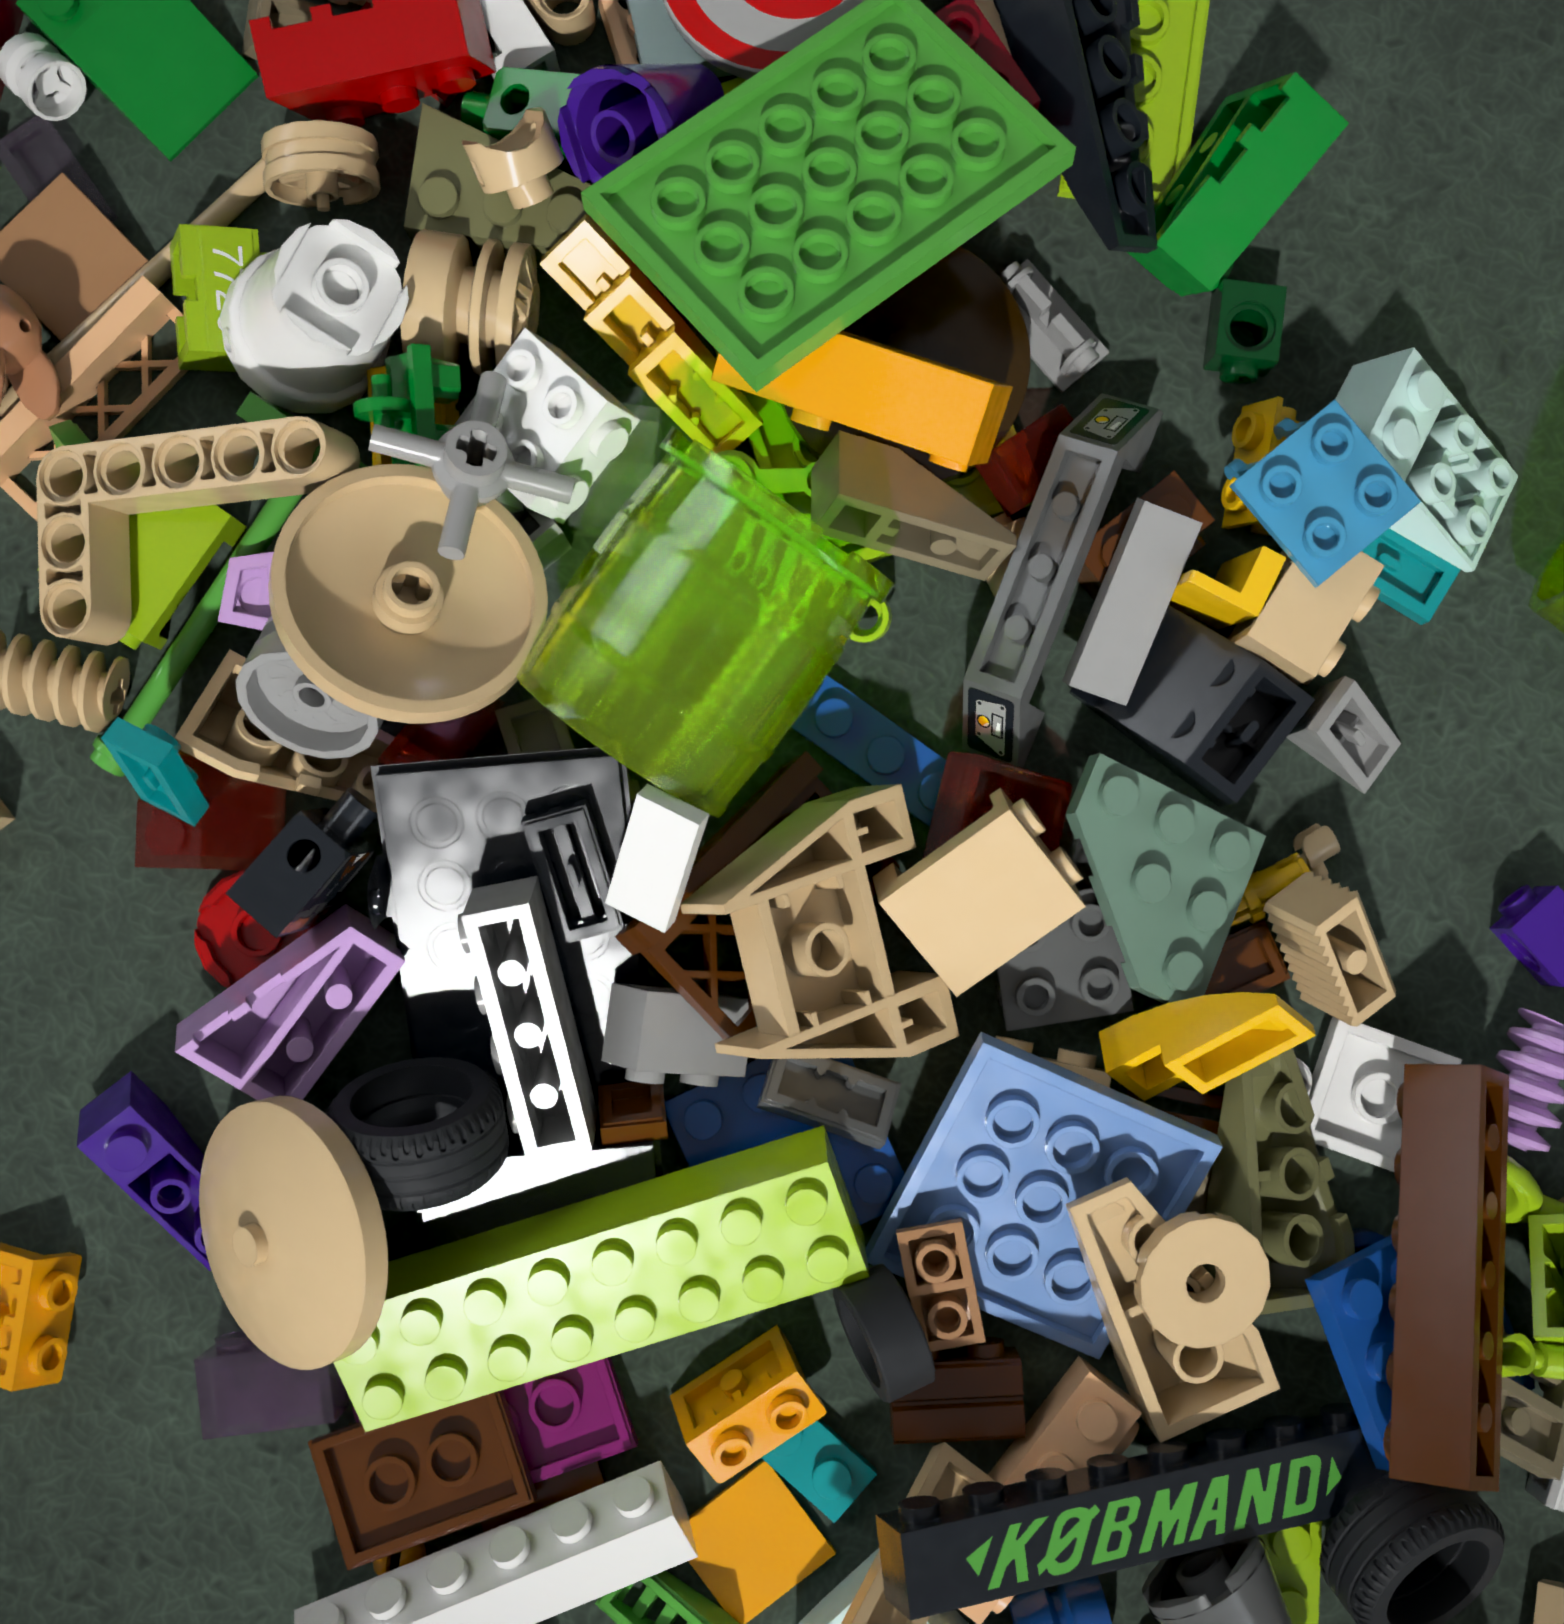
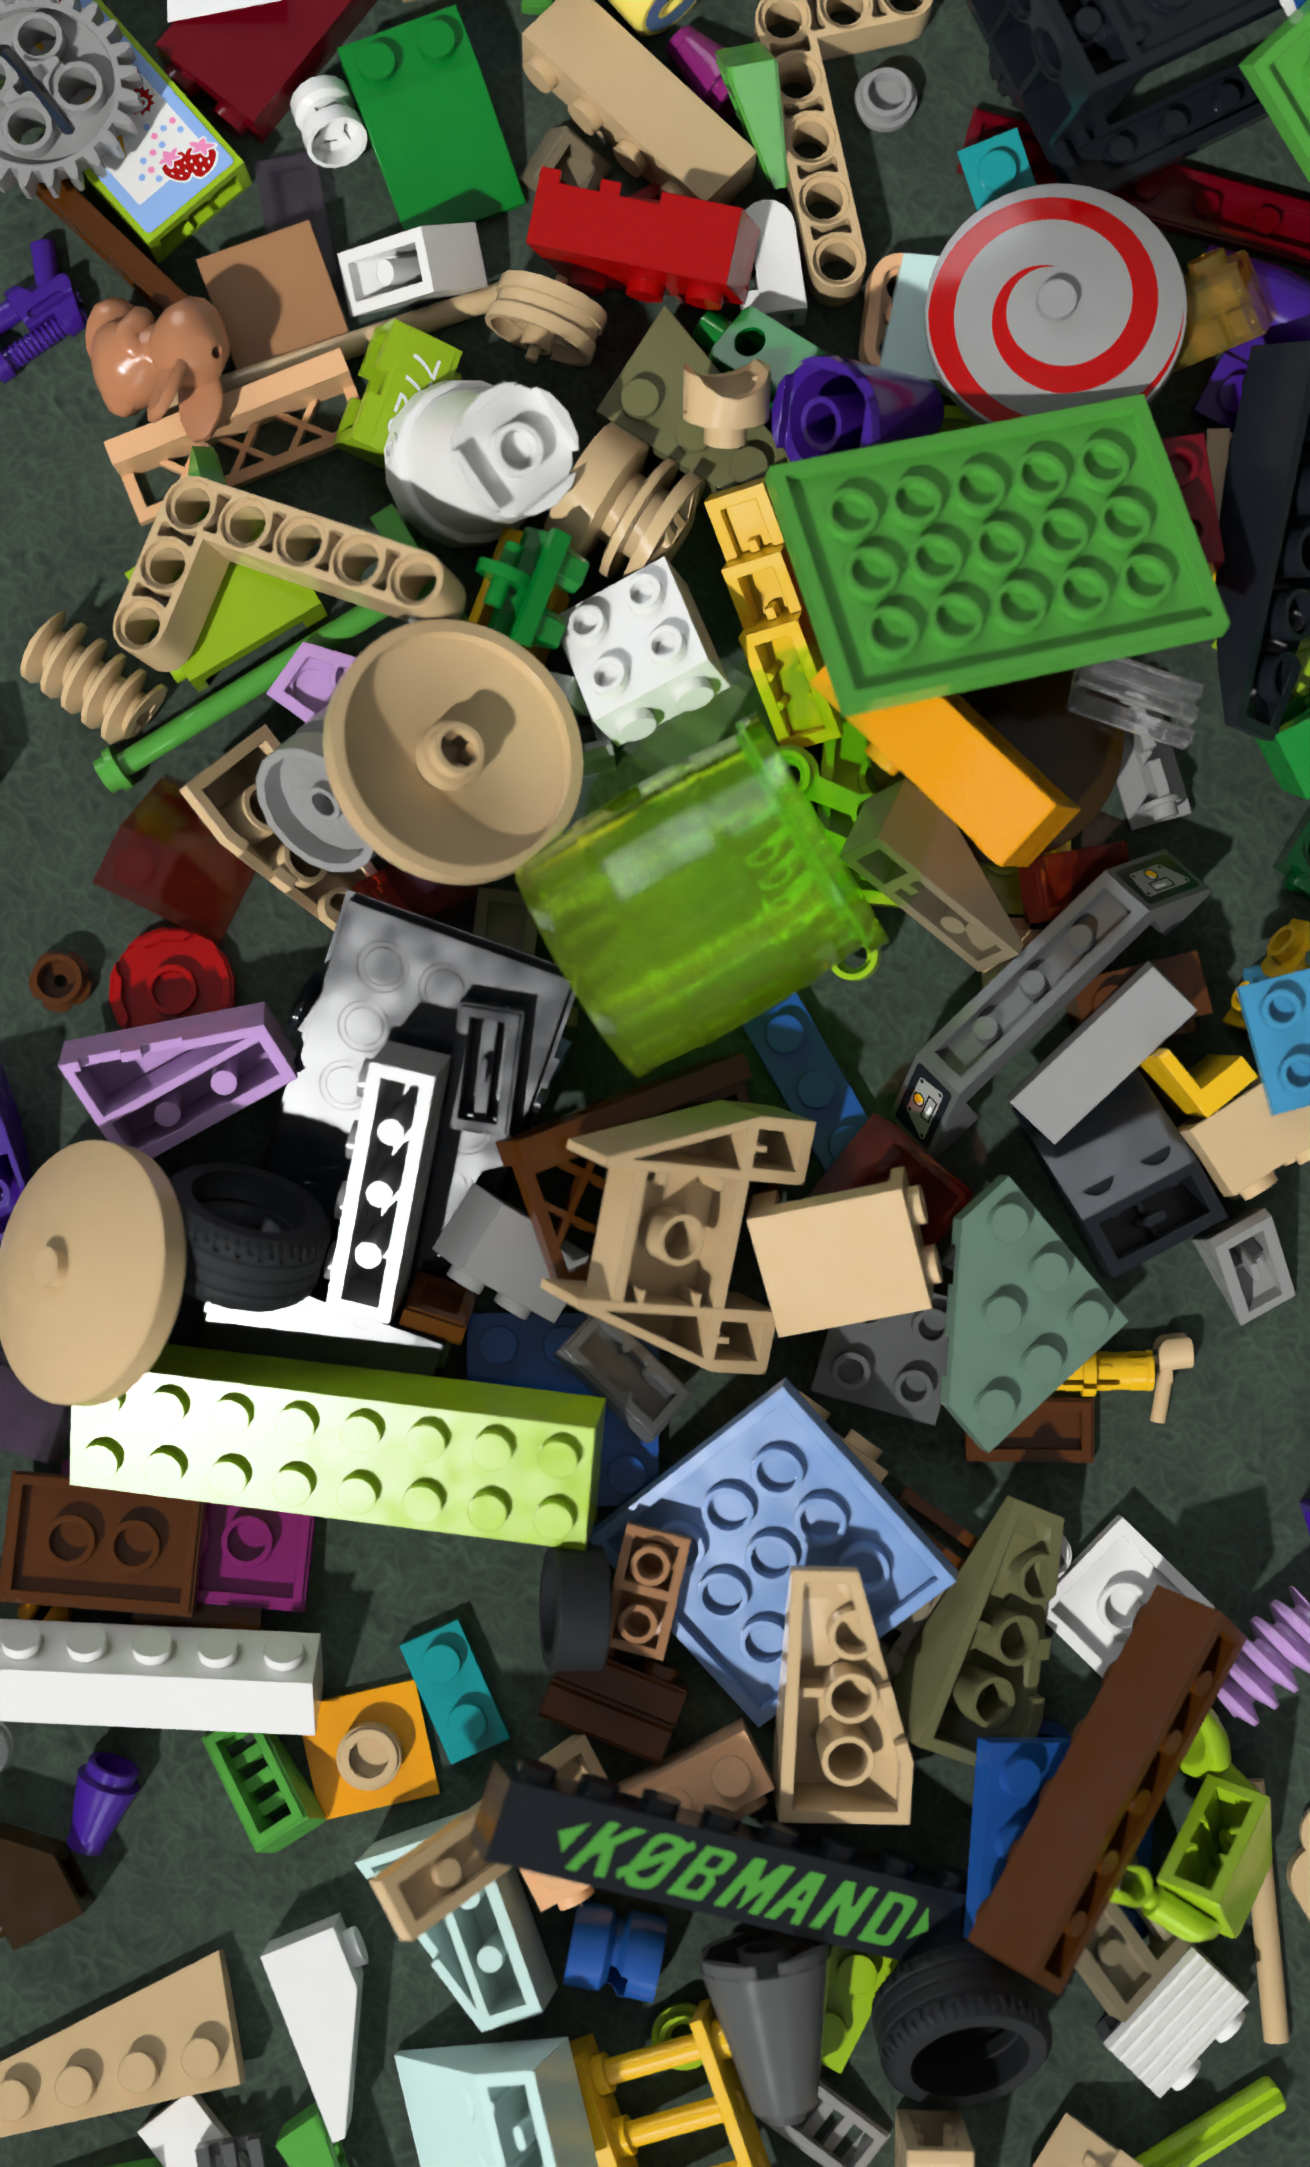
camera: 25 degrees right, 0 degrees up
(134, 969) = (43, 980): none -> reddish brown plate
(156, 769) = (155, 806): teal plate -> none
(179, 174) = (412, 268): none -> white slope
(307, 866) = (228, 961): black torso -> none
(469, 485) = (544, 674): light grey bar -> none
(656, 857) = (566, 1088): white tile -> none
(746, 1406) = (420, 1621): light orange bracket -> none
(756, 1550) = (369, 1756): none -> tan tile
(1010, 256) = (1138, 687): none -> clear tile
(1200, 1041) = (979, 1477): yellow slope -> none
(1224, 1307) = (888, 1725): tan tile -> none
(1330, 948) = (1139, 1450): tan brick -> none

